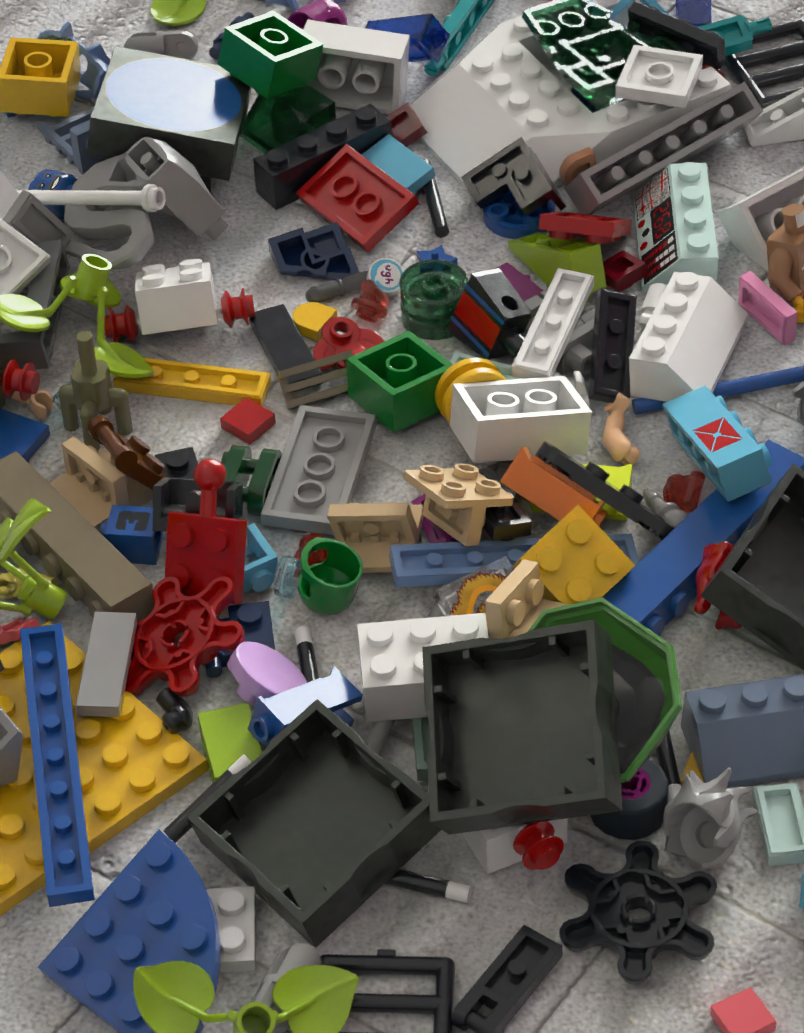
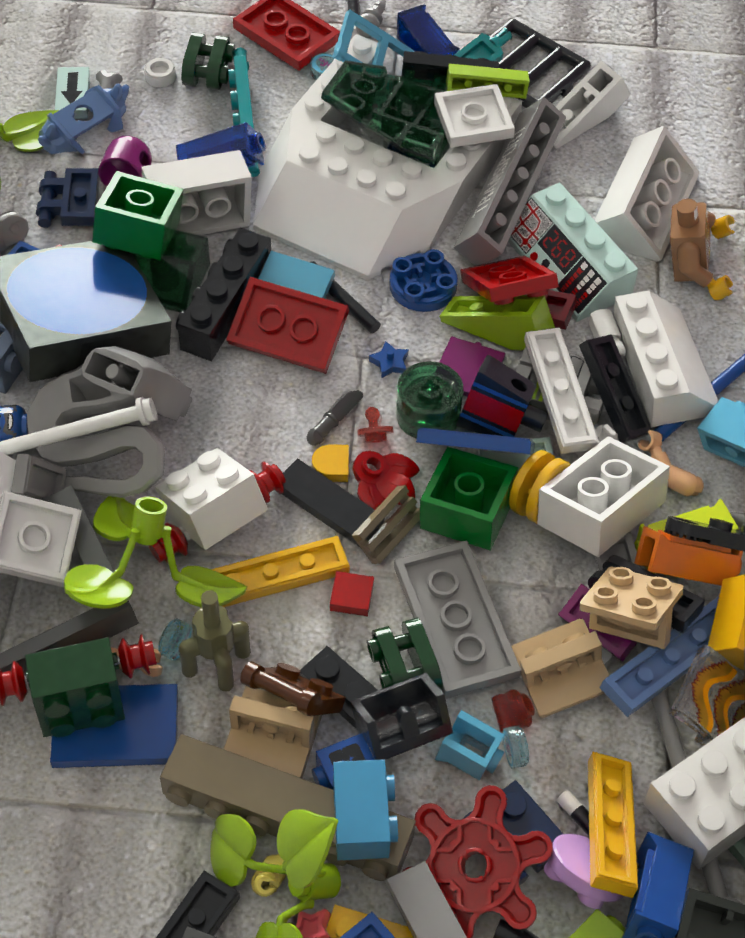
camera: 35 degrees left, 10 degrees up
(106, 549) = (362, 809): none -> dark azure brick
(206, 545) = (444, 761): red plate -> none
(307, 653) = (612, 825): none -> yellow tile
(313, 254) = (286, 396): dark blue slope -> none
(333, 583) = (571, 724): green helmet -> none
(386, 275) = (366, 393): white tile -> none
(406, 125) = (278, 232): plate -> none
(433, 332) = (475, 441): none -> blue tile
(515, 170) = (415, 248): black panel -> none
(575, 164) = (449, 223): nougat tile -> none
(716, 57) = (510, 82): none -> lime piece
(767, 308) = (695, 298): bright pink tile -> none

